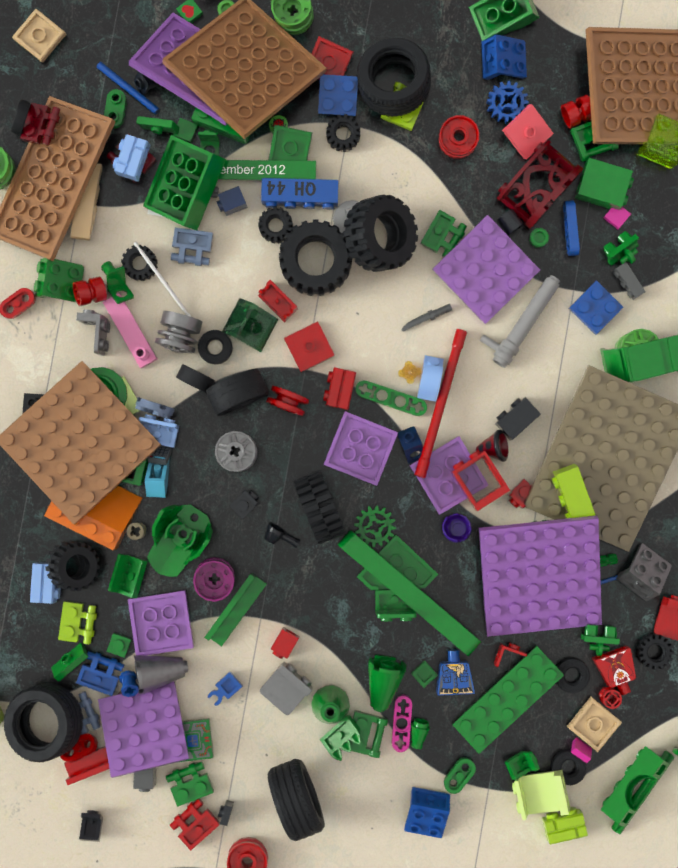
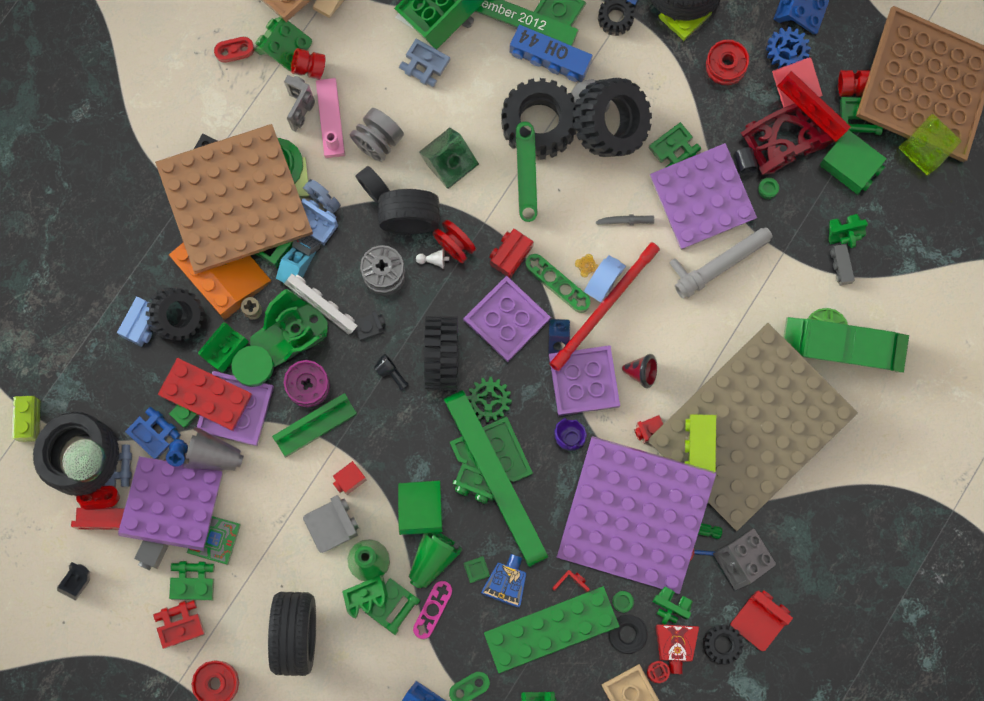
camera: 20 degrees right, 10 degrees down
(54, 732) = (83, 460): none -> clear green tile
(69, 662) = (128, 408): green plate -> none
(71, 622) = (147, 372): lime plate -> none
(116, 282) = (337, 66): green bracket -> none
(128, 259) = (364, 47): black tyre -> none
(130, 623) = (205, 394): none -> red plate
(160, 582) = (252, 366): none -> green tile
(161, 279) = (381, 77): white piece -> none
(203, 343) = (405, 153): black tyre -> none
(203, 505) = (315, 299): none -> white plate
(225, 812) = (215, 624): black plate -> none
(226, 687) = (272, 499): blue plate -> none
(231, 201) = (480, 35): dark blue brick -> none
(267, 217) = (511, 63): black tyre -> none
(277, 301) = (485, 146): red hinge -> none
(277, 420) = (437, 258): none -> white piece
(309, 347) = (497, 202): red plate -> none
(325, 312) = (526, 171): none -> green piece
(356, 645) = (419, 507): none -> green tile
(419, 732) = (447, 625): green cone -> none
(490, 497) = (615, 415): red window -> none
(517, 418) = (676, 351): black brick -> none
(552, 149) = (813, 106): none -> red fence
(556, 650) = (622, 602): none -> green tile
(571, 228) = (804, 190): blue beam -> none
(596, 307) = (799, 277): blue plate -> none
(617, 217) = (855, 199): dark pink tile -> none

